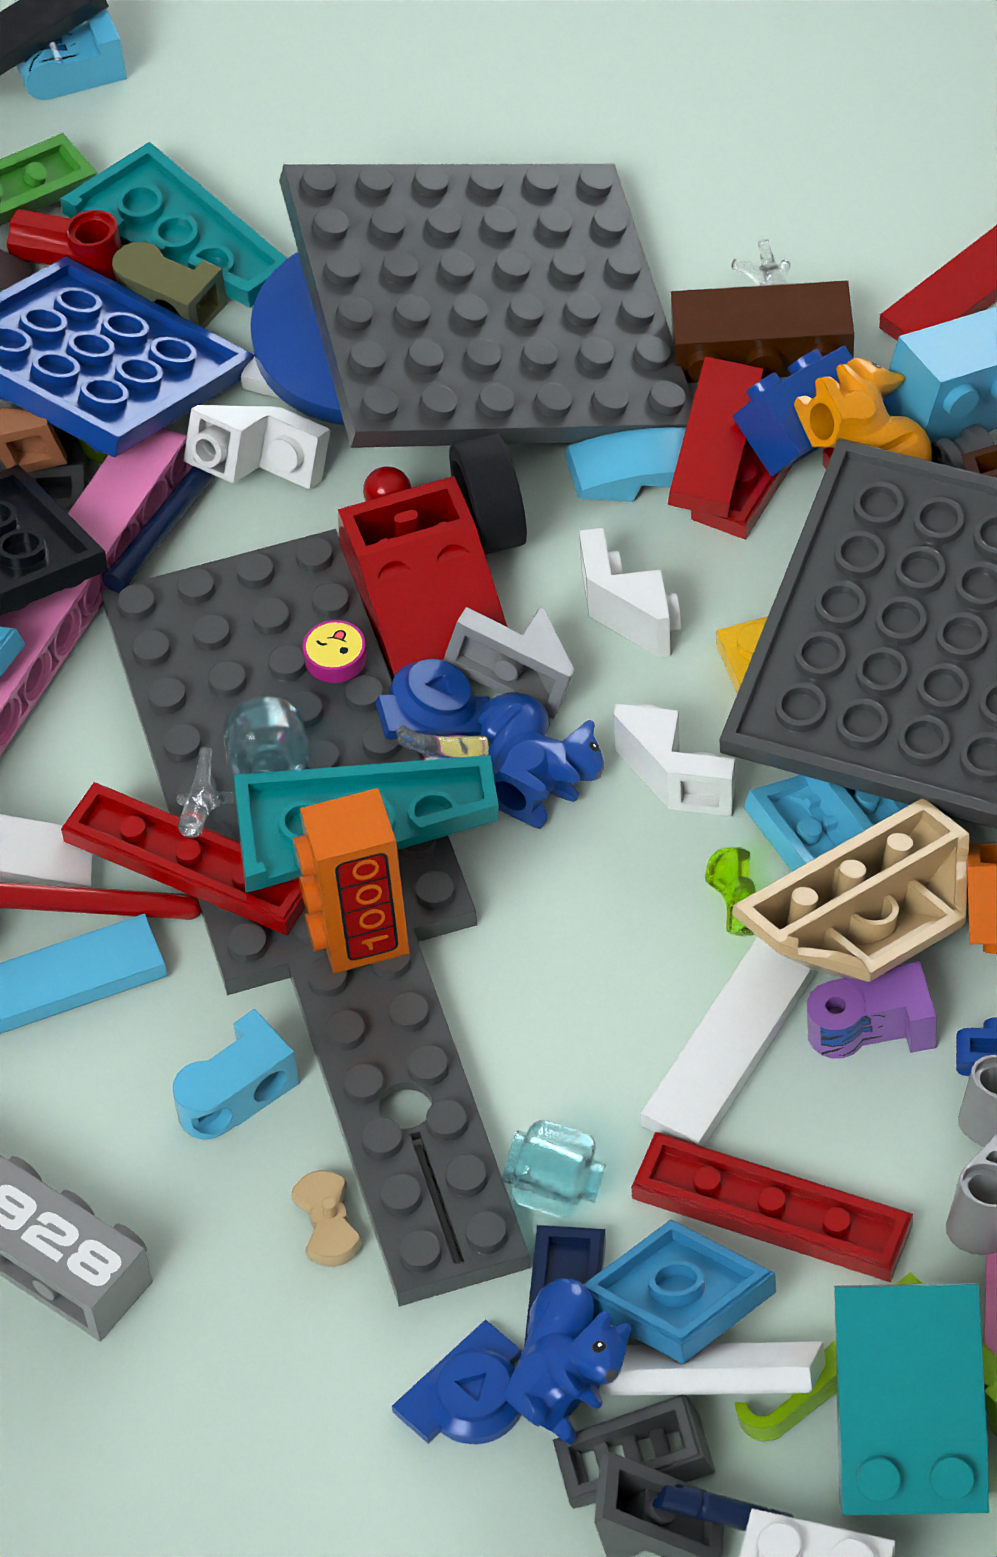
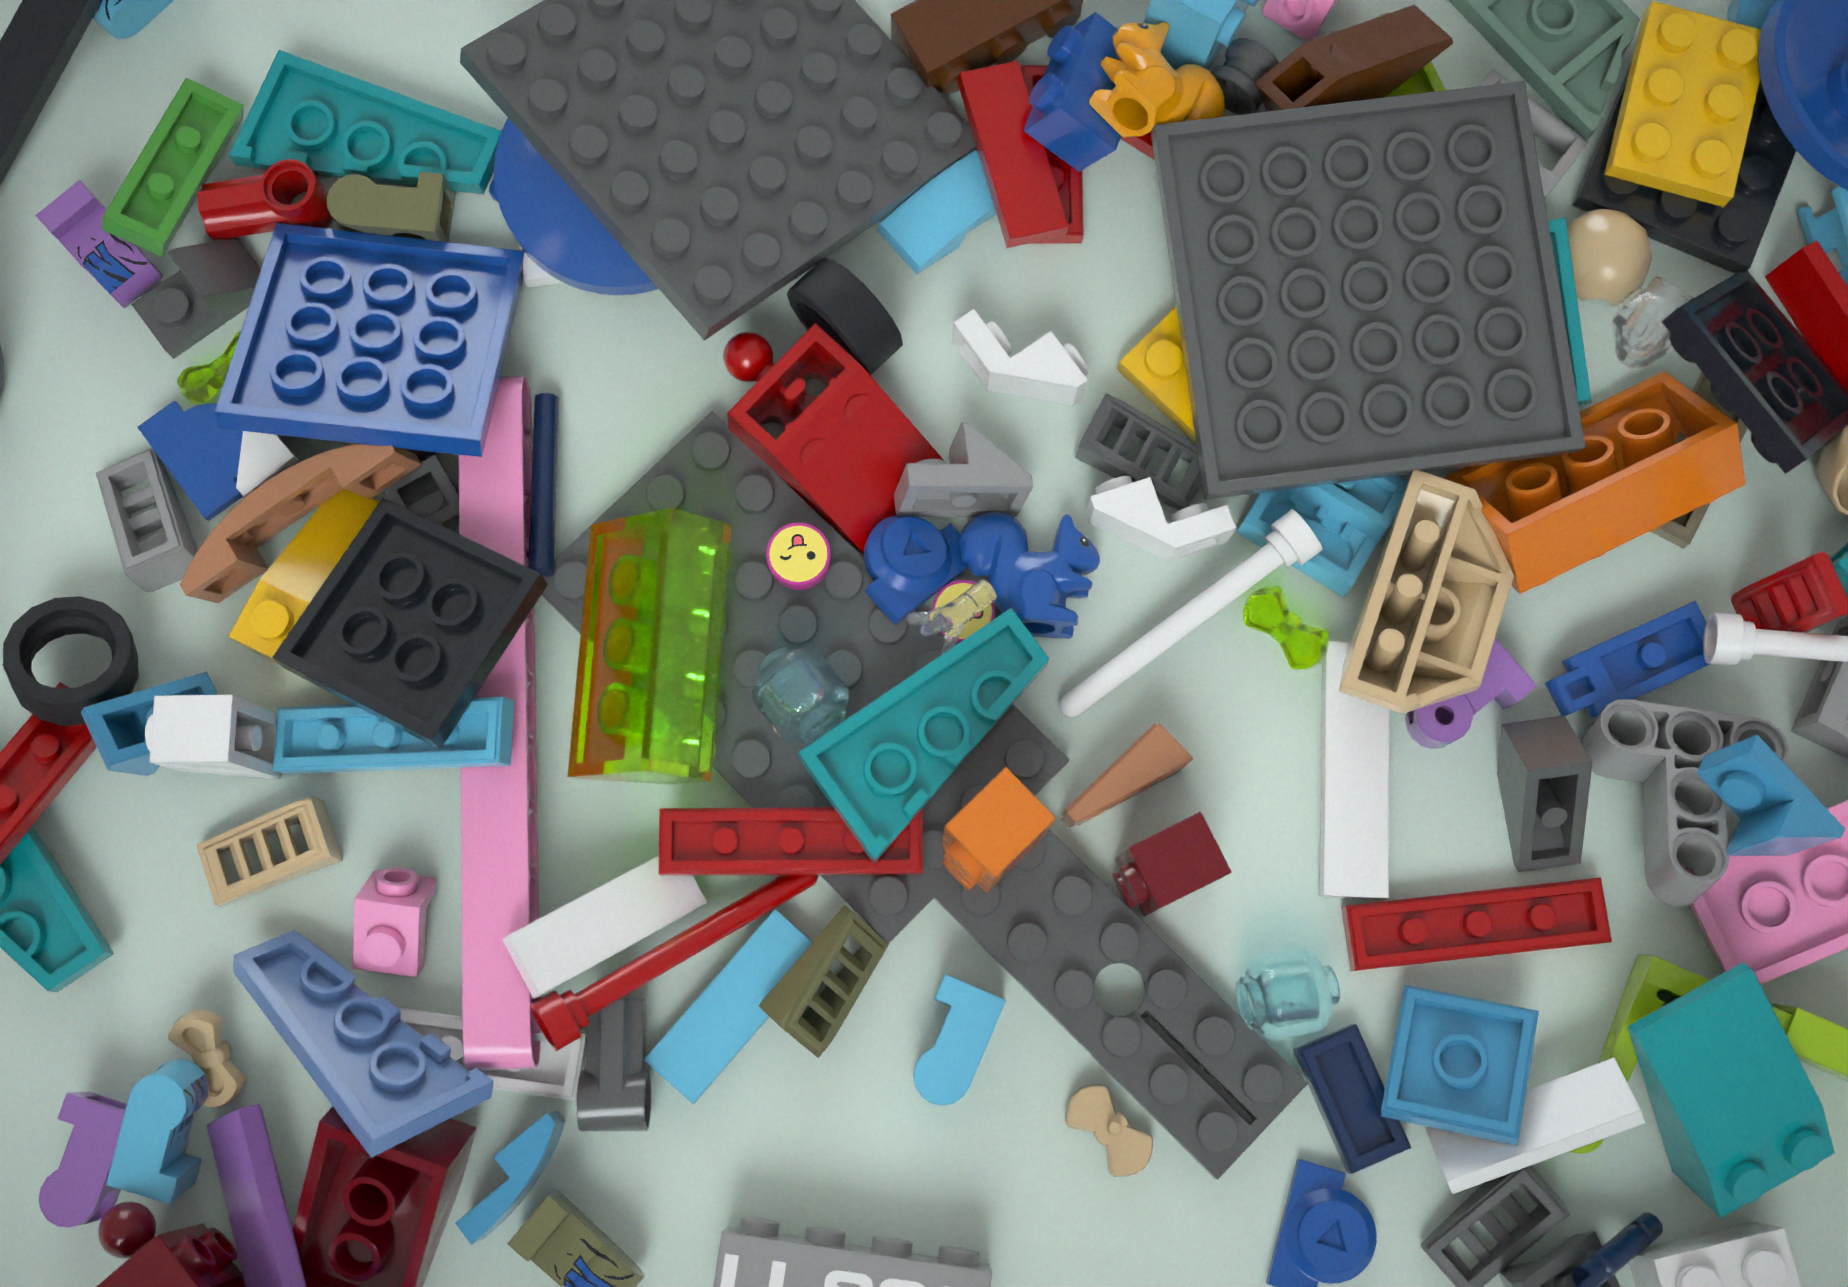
camera: 35 degrees left, 25 degrees up
(102, 998) = (798, 986): none -> olive slope
(166, 662) = (650, 649): none -> clear neon green slope
(201, 798) = (773, 782): clear bar -> none
(243, 438) = (564, 363): white slope -> none
(502, 1008) = (1169, 865): none -> dark red brick
(514, 942) = (1141, 766): none -> nougat slope
(565, 1357) = (1407, 1199): blue animal -> none
(673, 675) = (1135, 423): none -> dark grey slope
(772, 815) = (1288, 543): none -> white piece
(895, 1118) = (1544, 792): none -> dark grey slope

